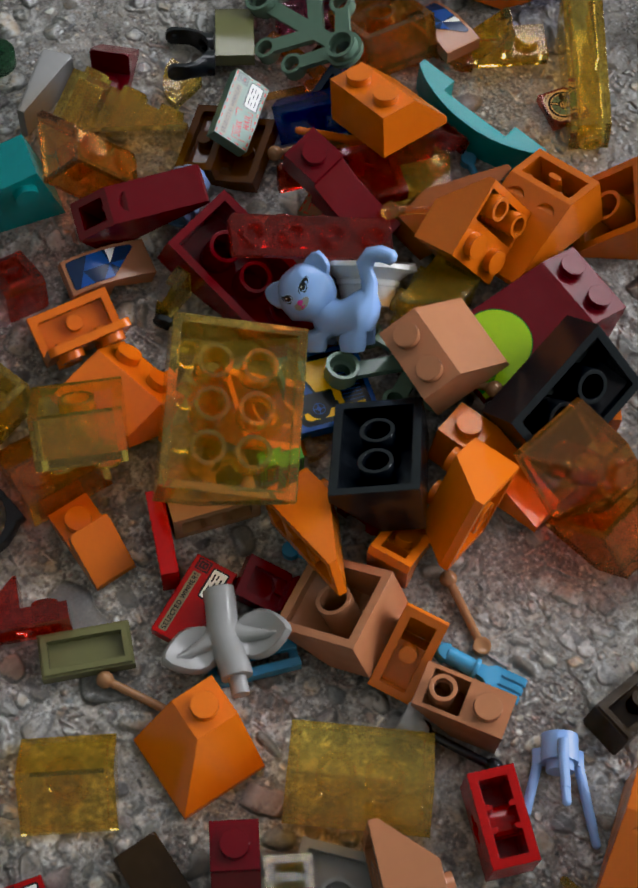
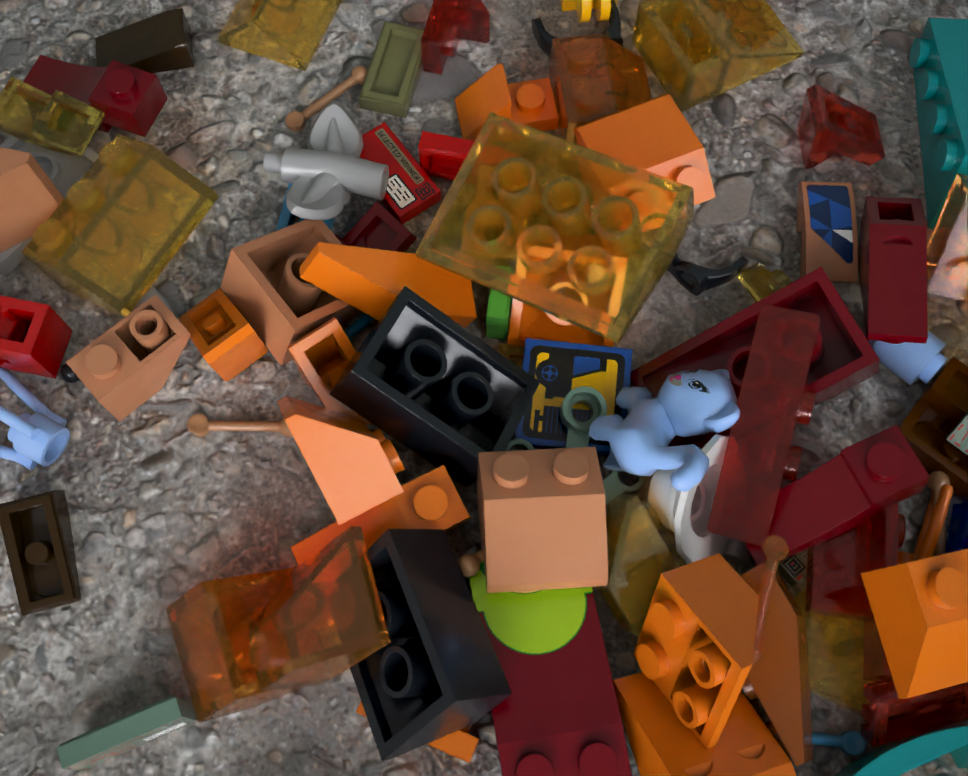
camera: 120 degrees right, 5 degrees up
(76, 327) = (749, 167): orange bracket -> none
(78, 425) = (612, 84): clear yellow slope -> none
(199, 747) = (244, 123): orange slope -> none
(491, 675) = (156, 418): dark azure piece -> none

